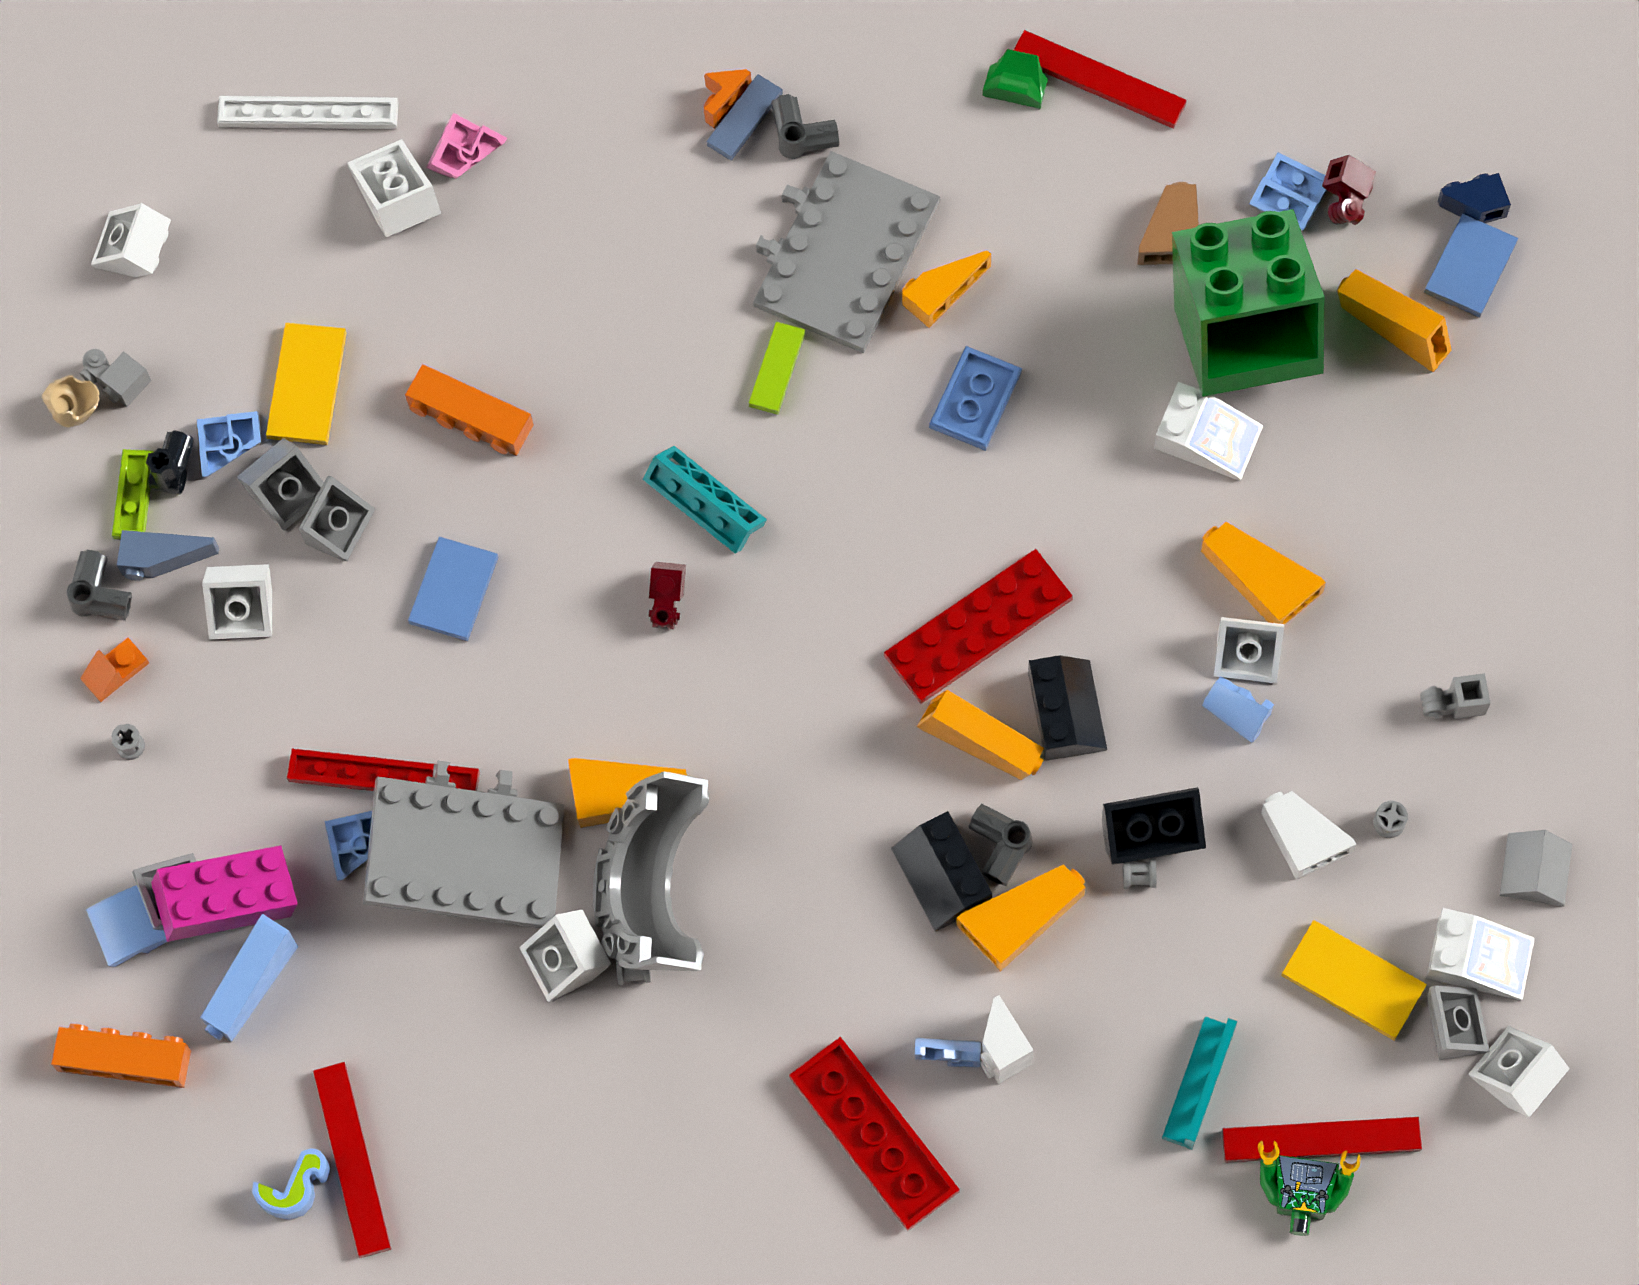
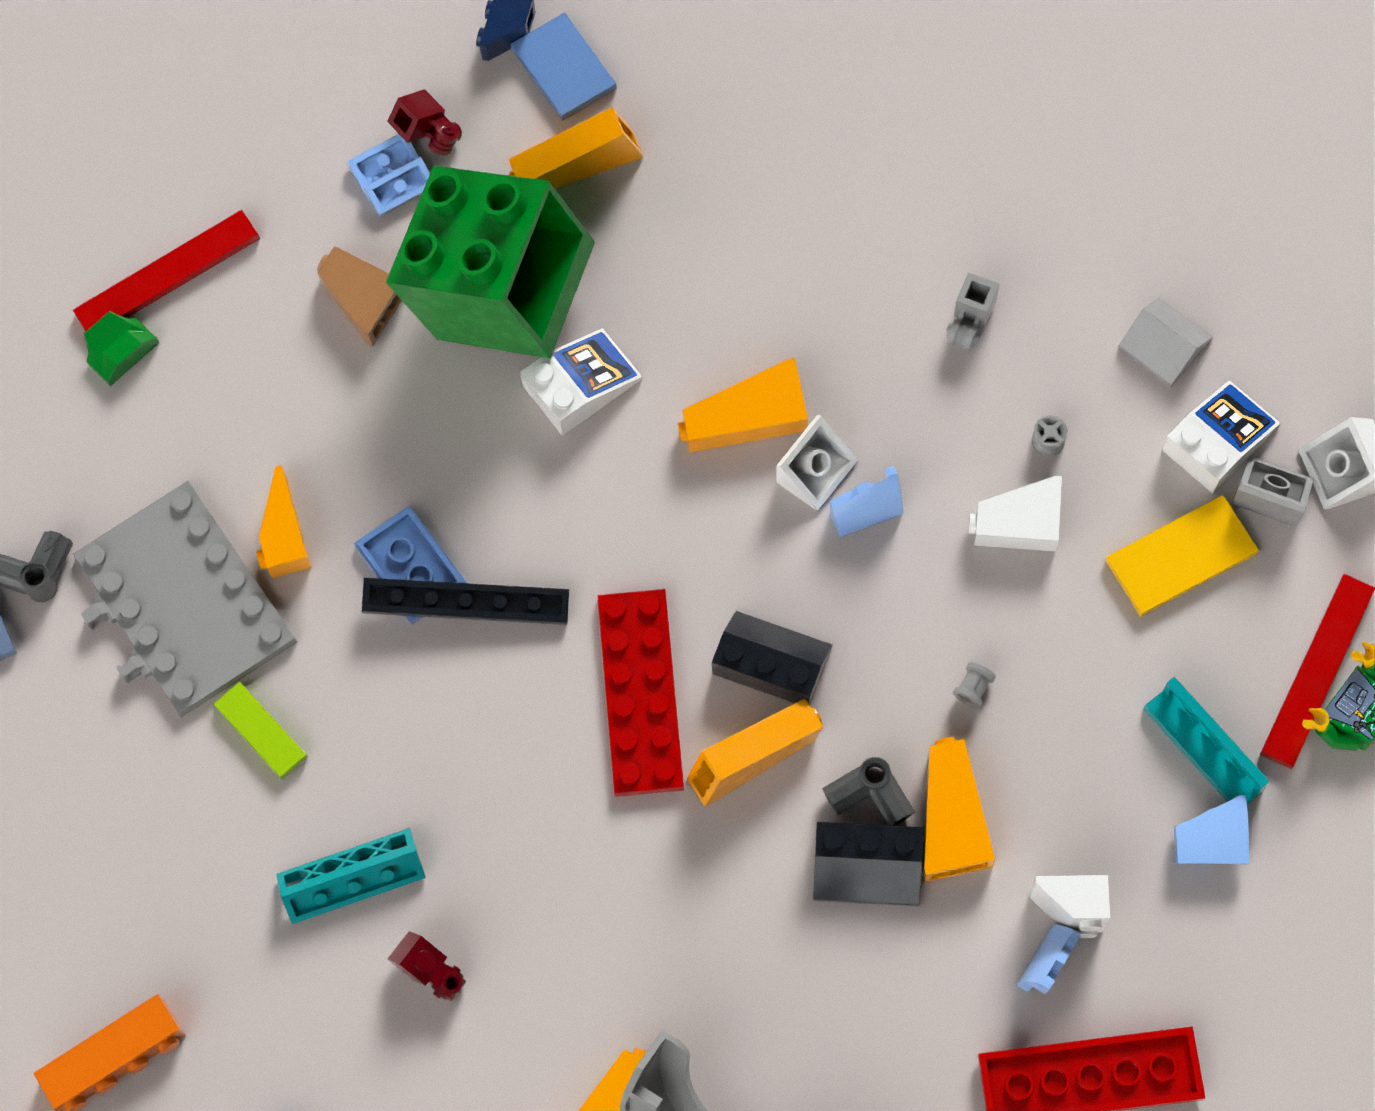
camera: 60 degrees left, 0 degrees up
(969, 454) = (465, 601): none -> black tile
(1127, 1126) = (1215, 835): none -> light blue slope
(1153, 826) = (943, 644): black slope -> none

